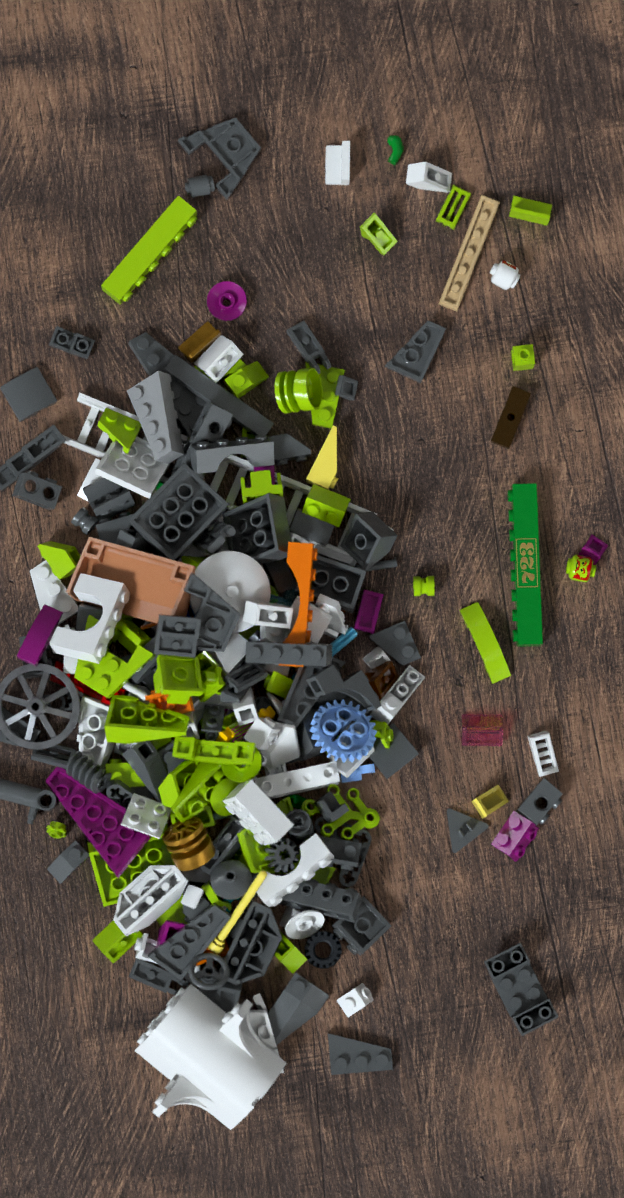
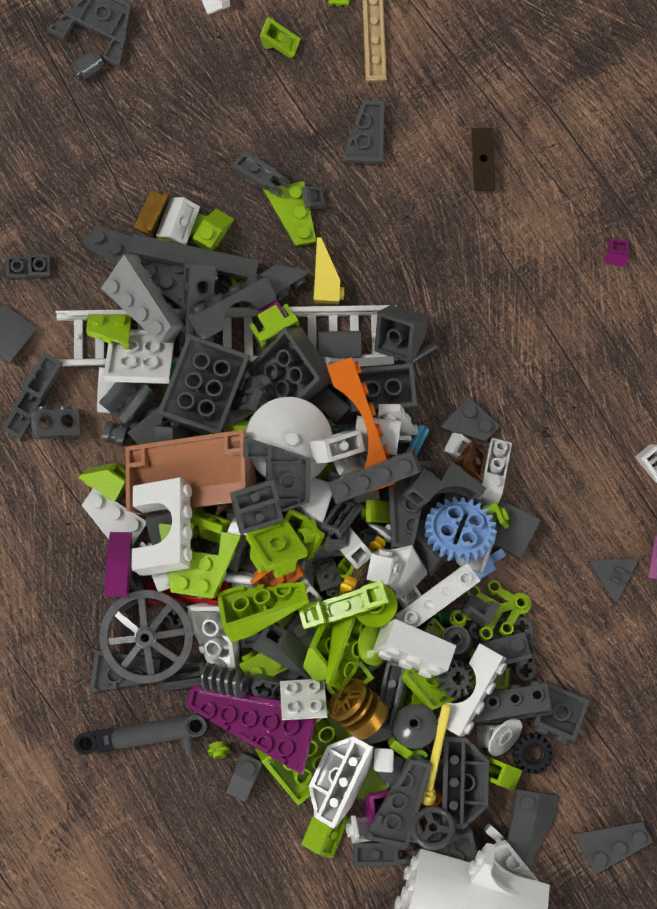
camera: 20 degrees left, 0 degrees up
(149, 250) = (65, 146): lime brick -> none
(226, 291) = (157, 154): magenta dish -> none
(298, 390) = (269, 217): lime wheel -> none
(326, 505) = (344, 317): lime brick -> none
(355, 999) = (586, 789): white bracket -> none
(368, 611) = (429, 403): magenta plate -> none
(423, 586) = (471, 355): lime wheel -> none
(482, 730) = (590, 470): clear pink panel -> none
(485, 642) = (555, 383): lime slope -> none
(490, 801) = (628, 537): light yellow slope -> none
(504, 275) = (417, 27): white head -> none
(522, 357) = (469, 97): lime brick -> none
(526, 565) = (561, 293): green brick -> none
(580, 568) = (614, 274): lime head -> none

